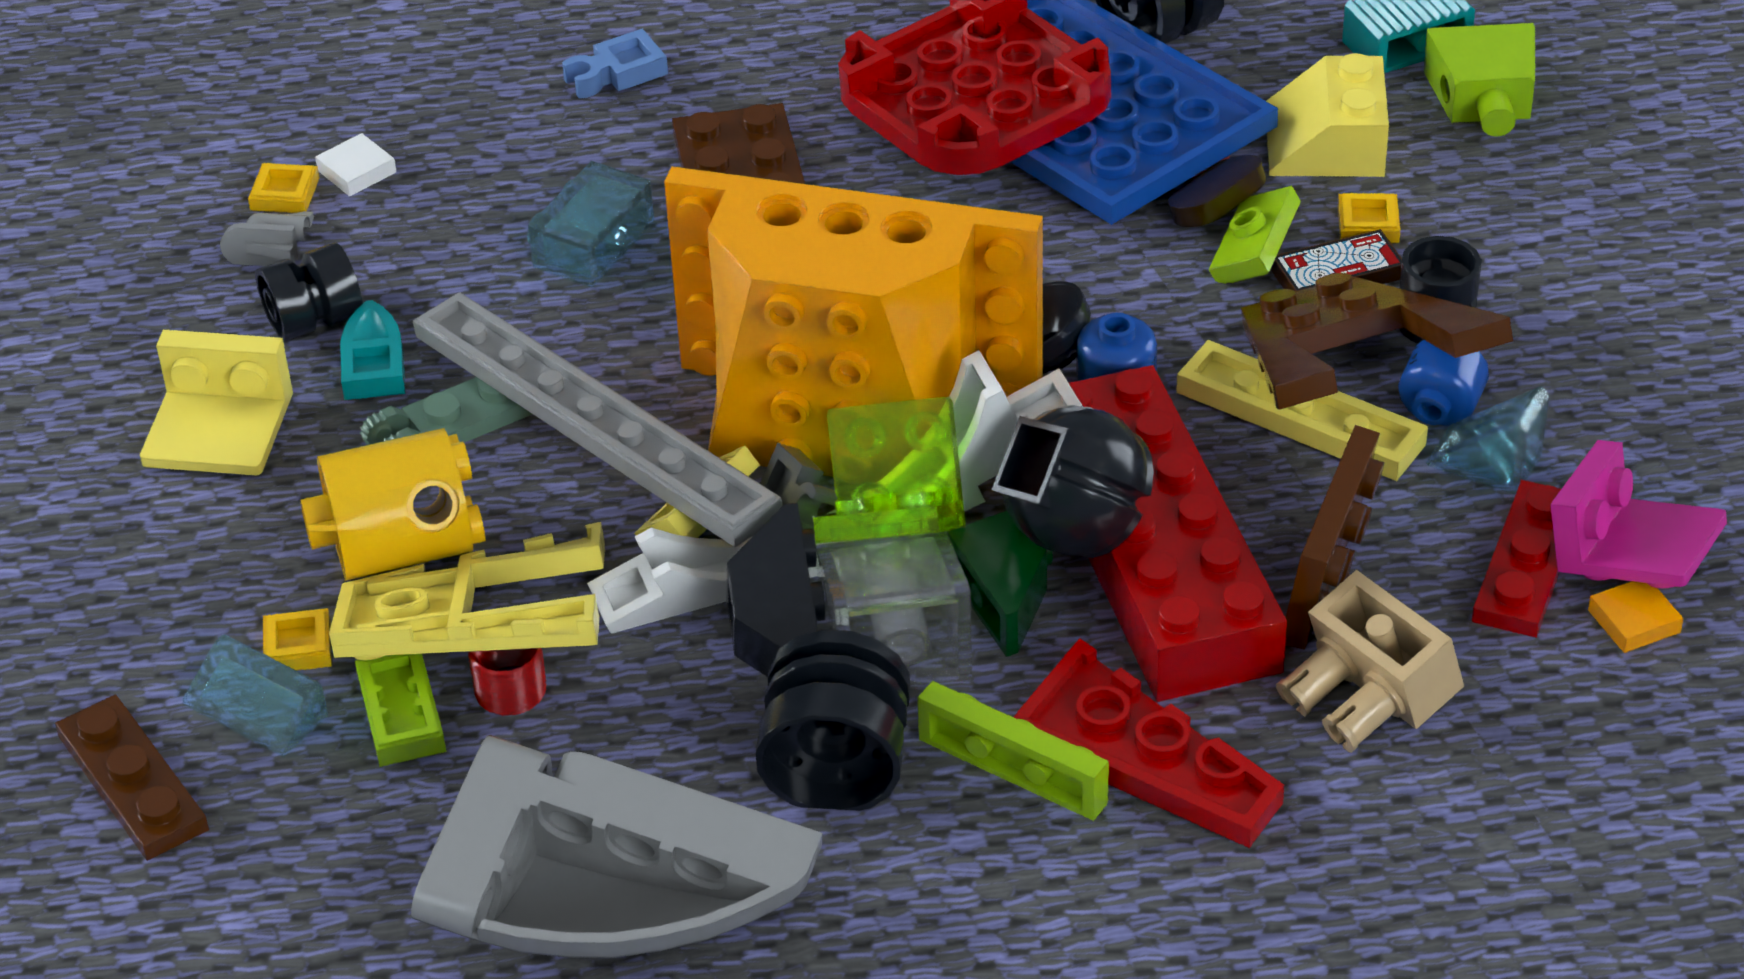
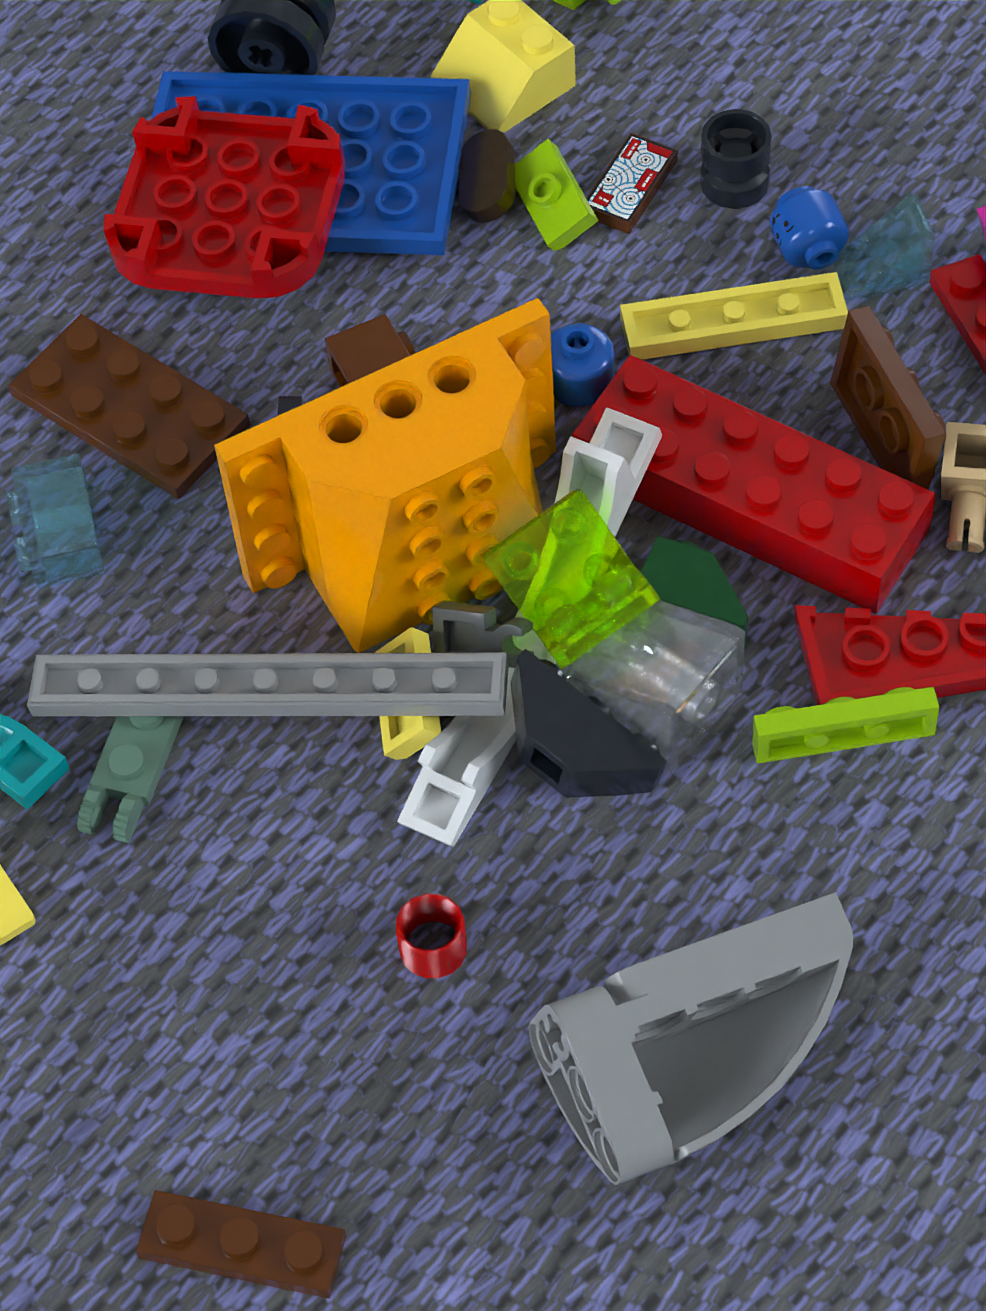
camera: 40 degrees left, 15 degrees up
(256, 696) = (262, 1105): clear light blue slope -> none
(298, 638) = (234, 1035): yellow tile -> none
(371, 509) = (207, 870): yellow cylinder -> none
(400, 708) = (382, 1026): lime plate -> none
(432, 609) = (319, 948): light yellow wing -> none
(833, 721) = (726, 798): black wheel -> none
(1075, 480) = (743, 480): black piece -> none
(1345, 309) = (690, 221): reddish brown wing -> none
(1369, 212) = (605, 127): yellow tile -> none

